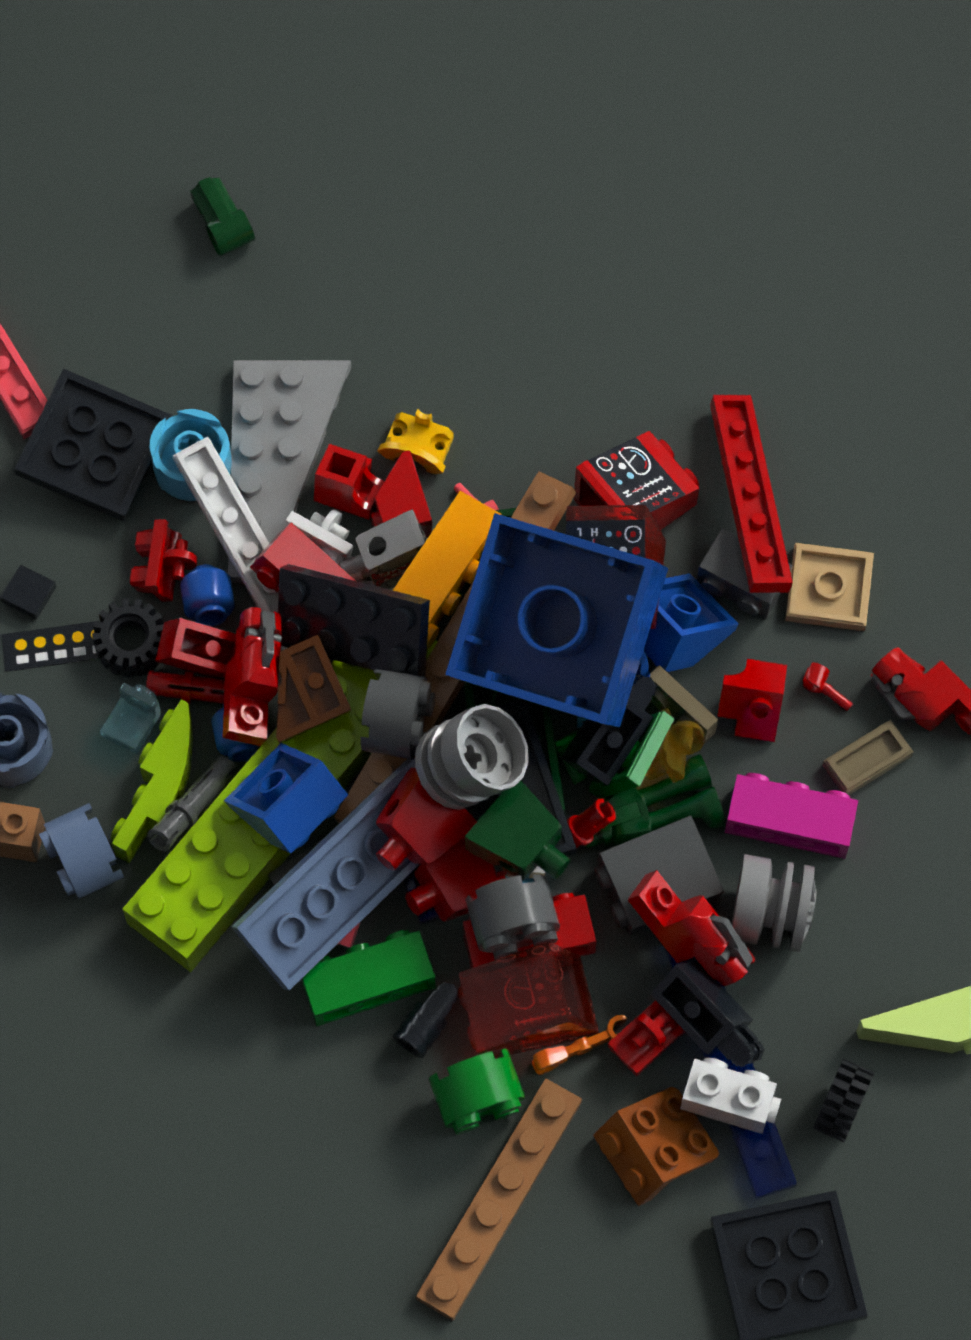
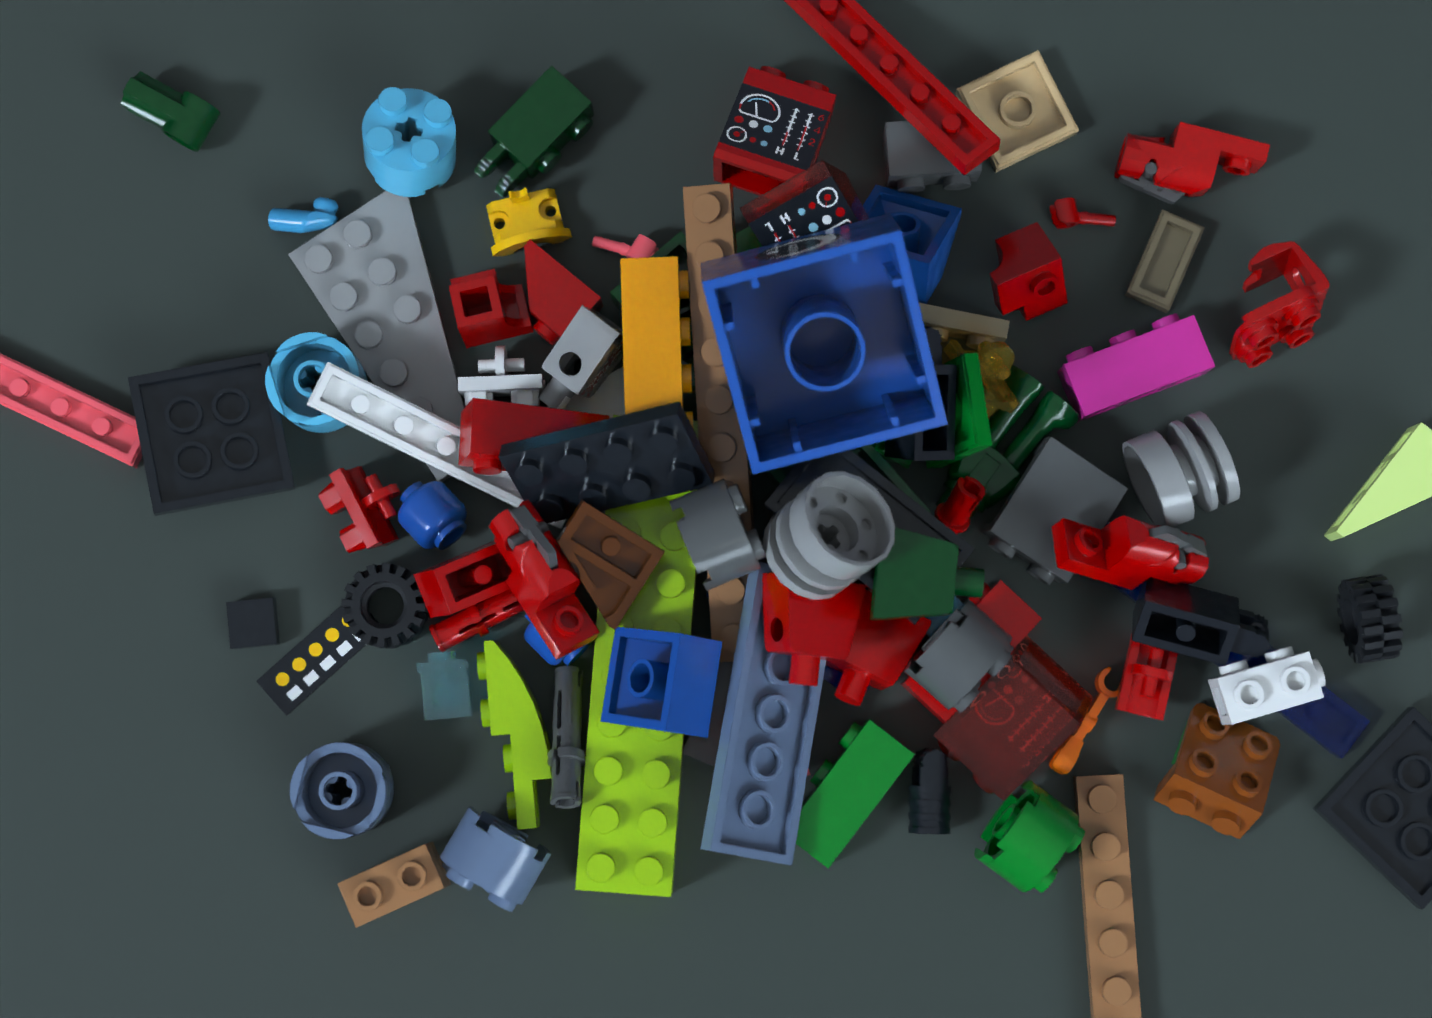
camera: 30 degrees left, 15 degrees up
(262, 345) = (304, 221): none -> dark azure arm
(372, 334) = (409, 141): none -> medium azure brick
(467, 384) = (536, 130): none -> dark green hinge
(925, 841) = (1287, 317): none -> red piece

